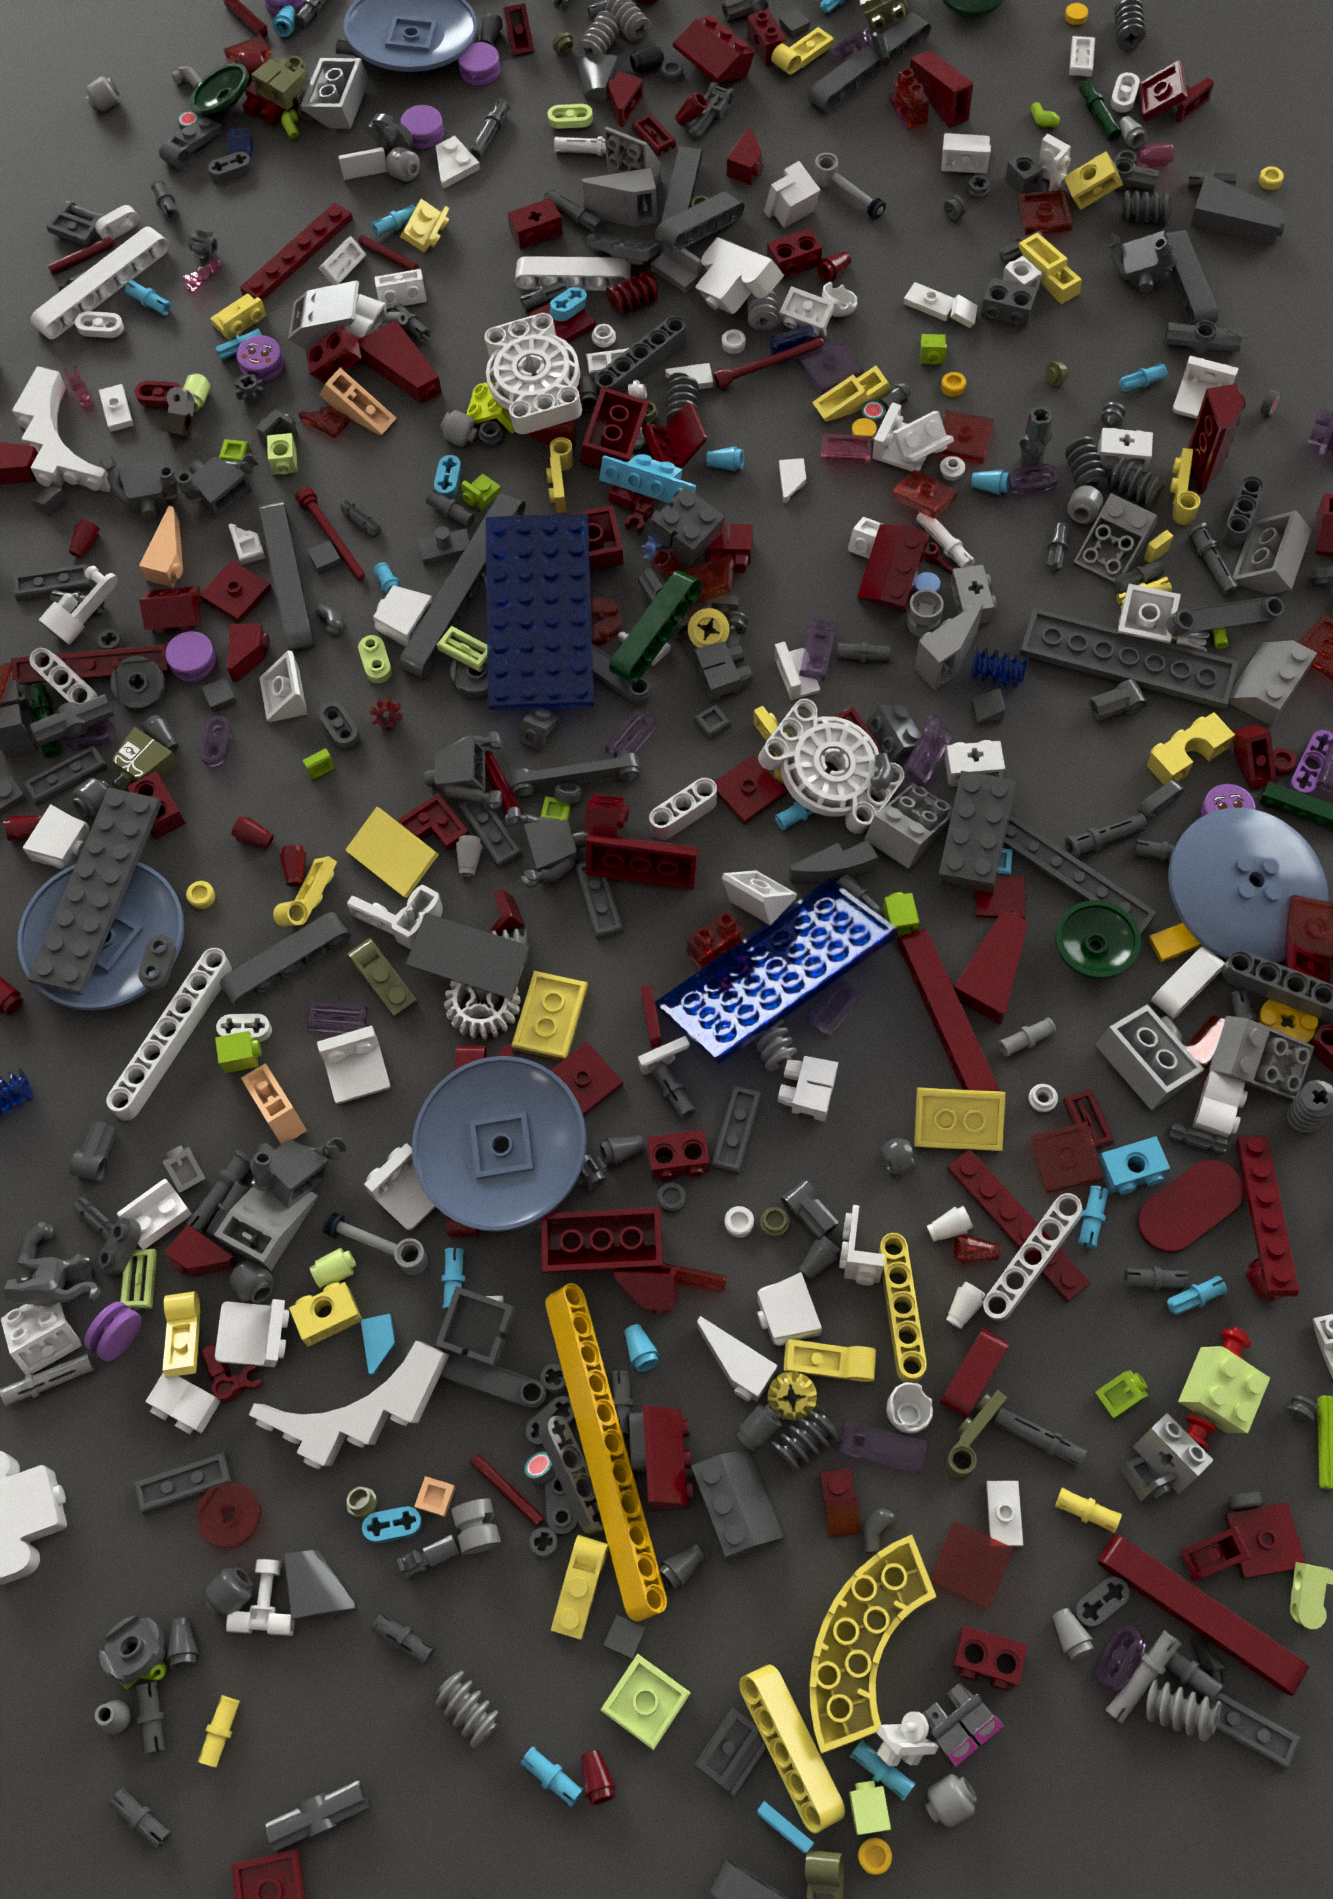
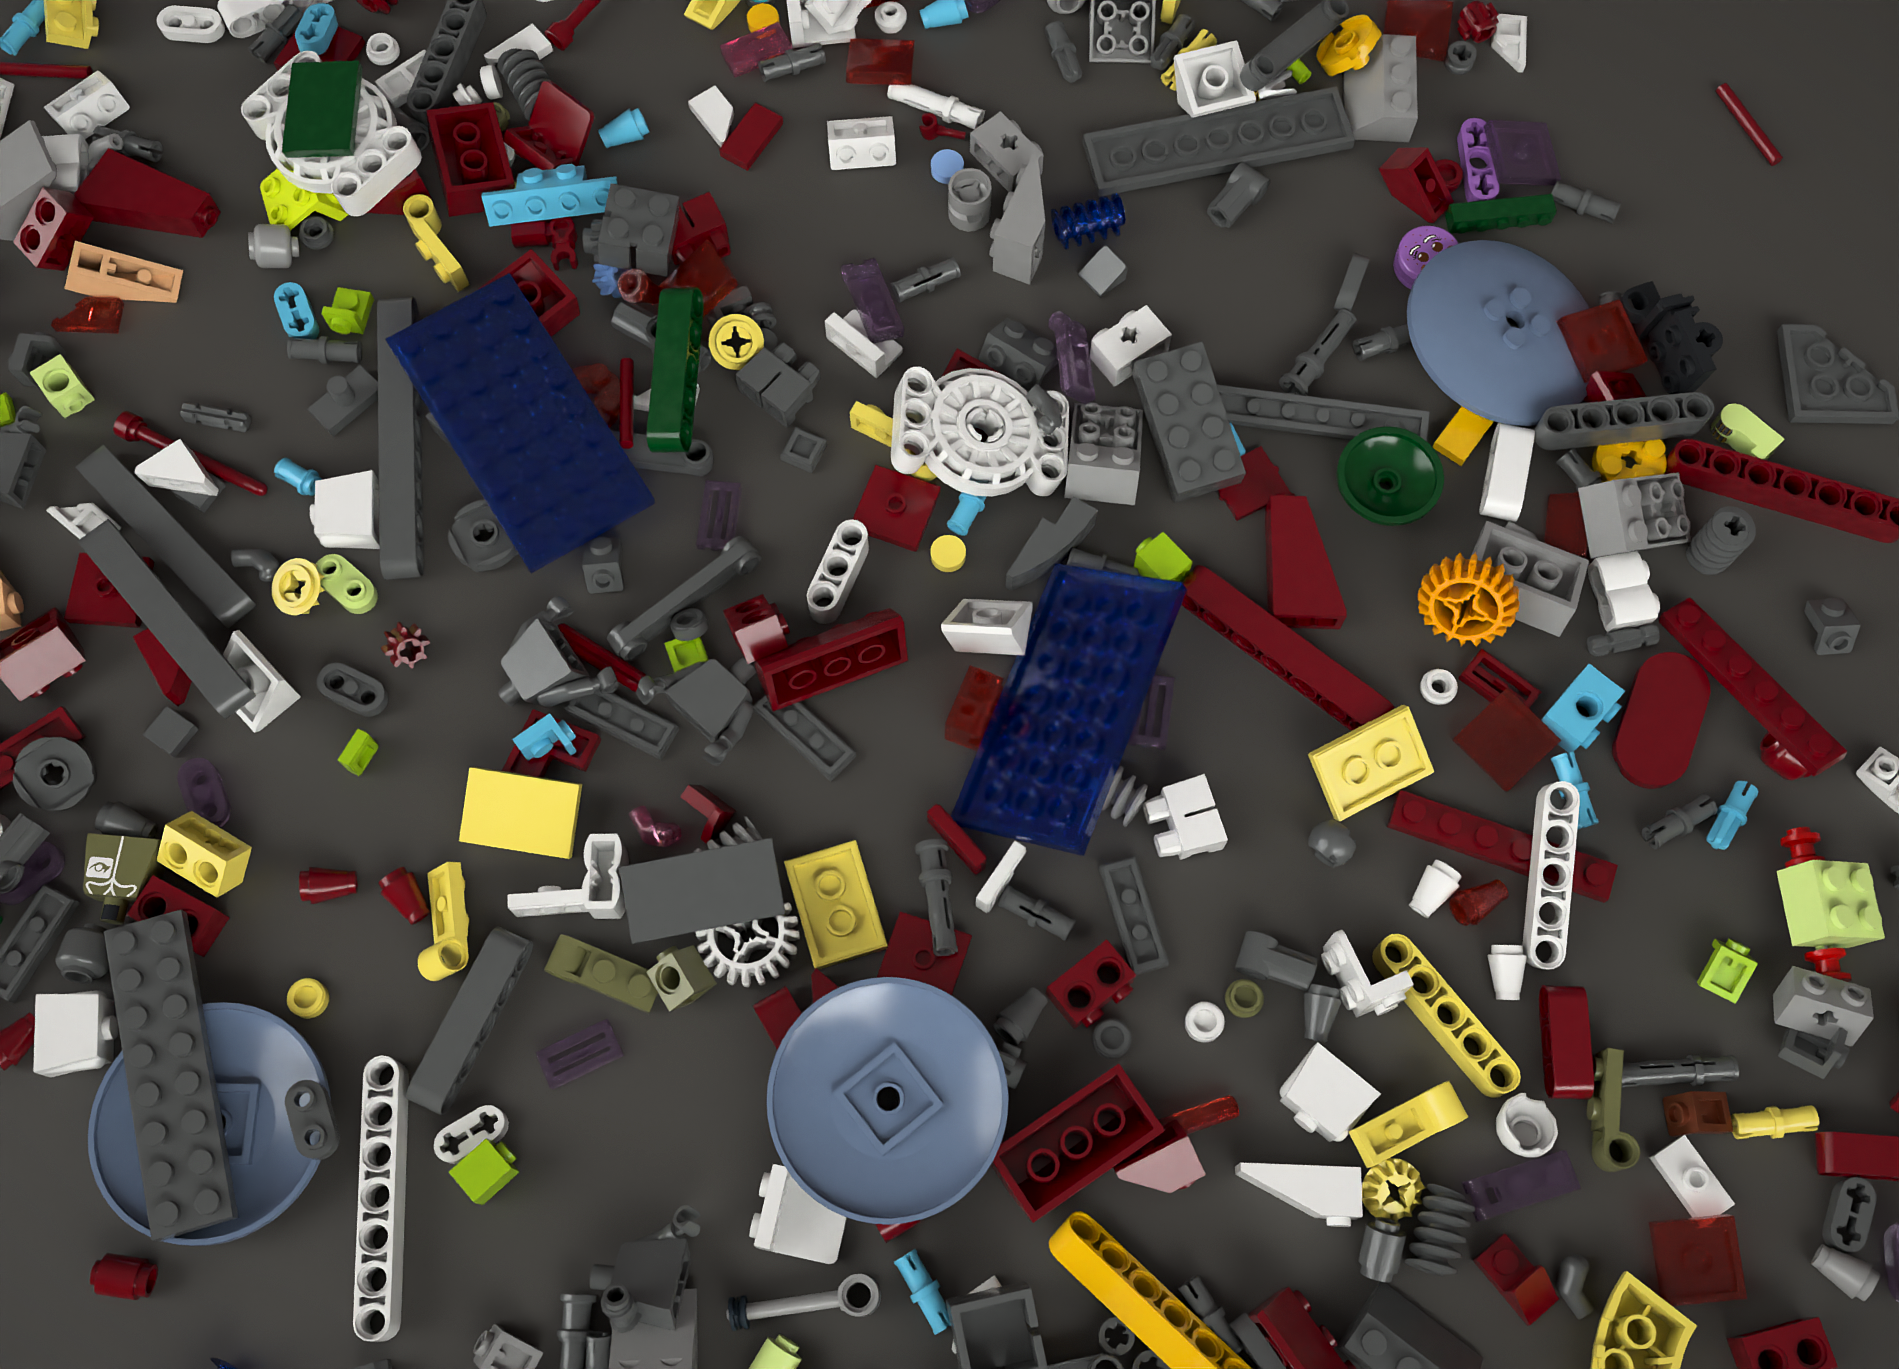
camera: 35 degrees left, 5 degrees up
(191, 656) = (103, 703): medium lavender head -> none
(192, 775) = (203, 854): none -> light yellow brick
(254, 623) = (167, 619): none -> dark grey beam
(273, 1104) = (570, 1208): light nougat slope -> none
(317, 537) = (176, 469): none -> white slope
(341, 639) = (286, 581): none -> light yellow gear
(354, 1064) = (642, 1102): white bracket -> none
(424, 1003) = (680, 976): none -> olive brick
(430, 811) = (539, 738): none -> medium azure bracket
(464, 652) = (454, 519): yellowish green tile -> none
(465, 909) = (654, 832): none -> clear pink arm
(468, 854) = (616, 764): light grey cone -> none
(494, 265) = (194, 24): none -> white plate
(533, 355) = (322, 109): none -> dark green tile
(615, 634) = (626, 418): none -> dark red bar
(621, 1033) = (936, 881): none -> dark grey pin
(641, 1350) = (1192, 1240): medium azure cone -> none
(658, 388) = (491, 82): none -> white tile
(764, 835) = (948, 553): none -> light yellow tile
(807, 503) = (751, 136): none -> dark red tile
(865, 467) = (791, 62): none -> dark grey pin
(893, 566) = (902, 161): dark red slope -> none
(1027, 1037) = (1380, 627): light grey pin -> none
(1037, 1472) = (1697, 1113): none -> copper bracket
(1095, 1047) = (1480, 617): none -> light orange gear
(1206, 736) = (1355, 190): light yellow arch -> none
(1263, 639) = (1349, 46): none -> yellow plate

